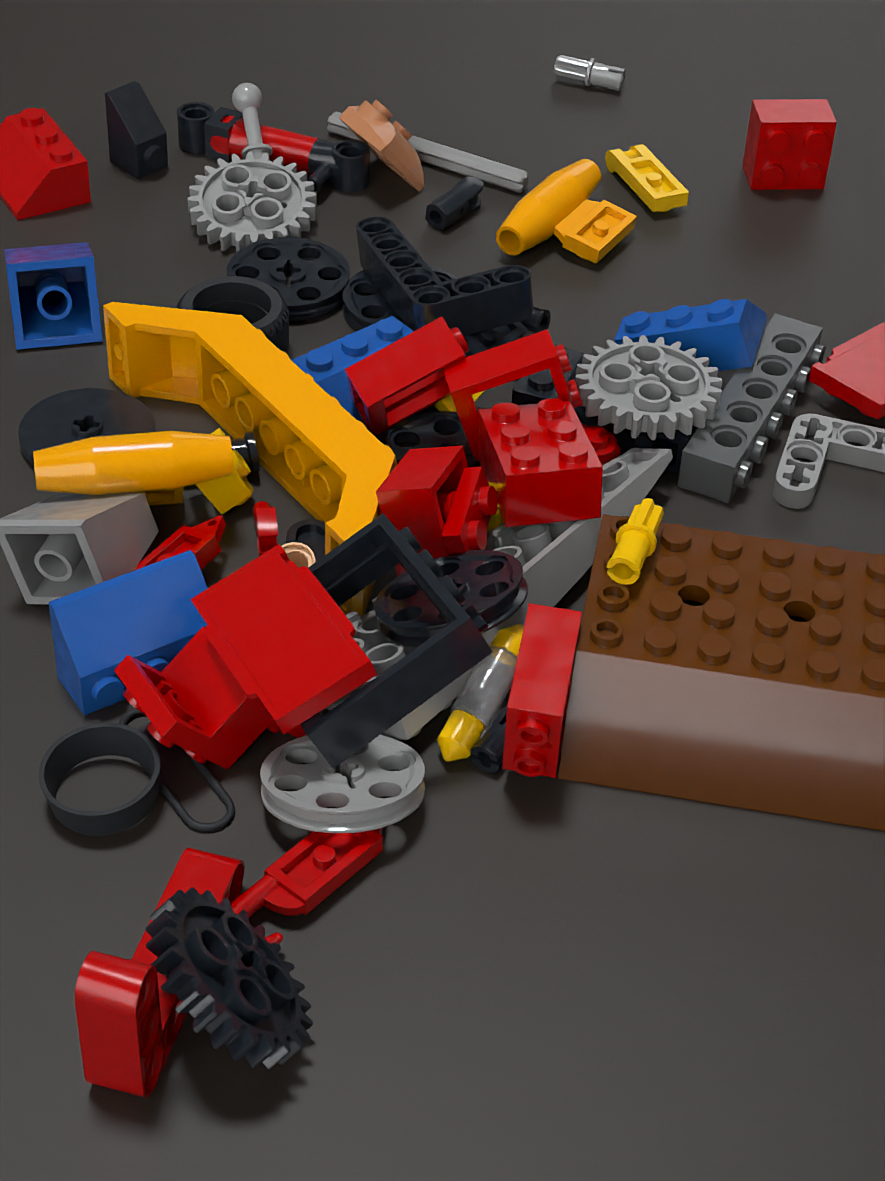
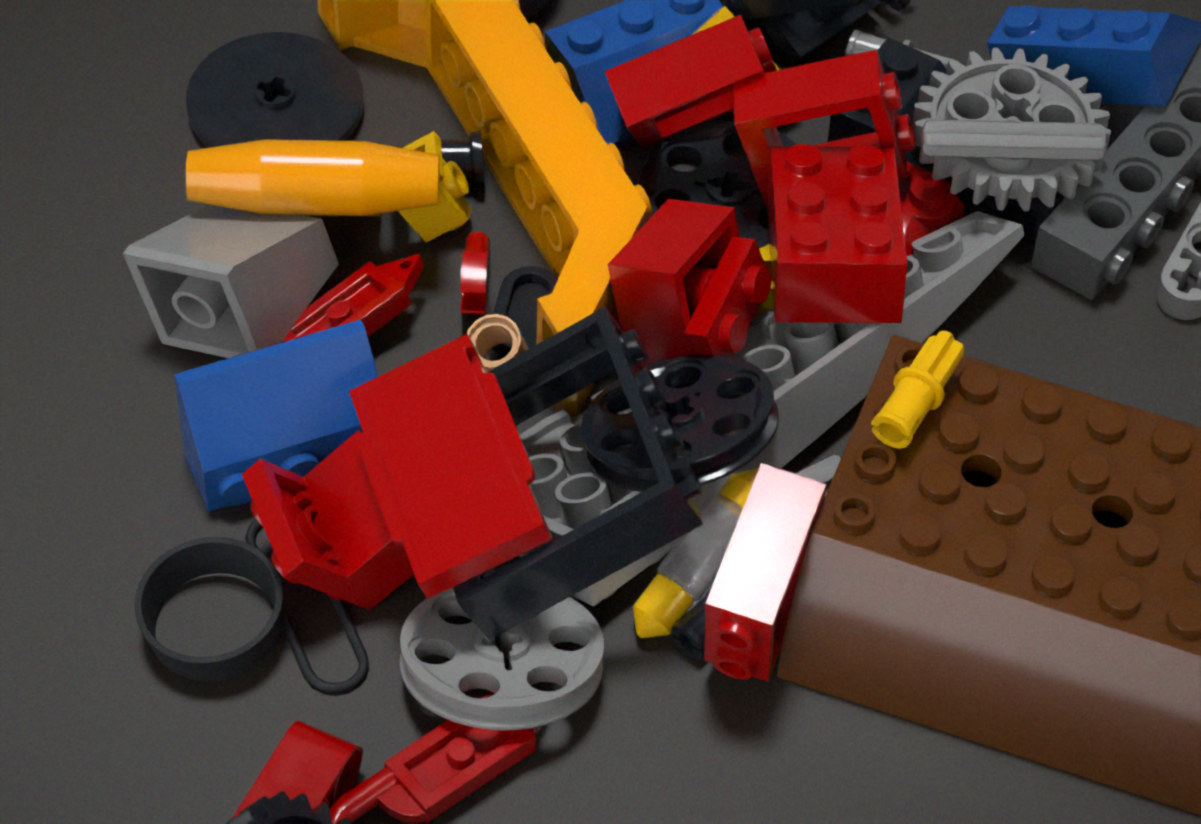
camera: 10 degrees right, 10 degrees up
(656, 386) = (1013, 139): none -> light grey axle

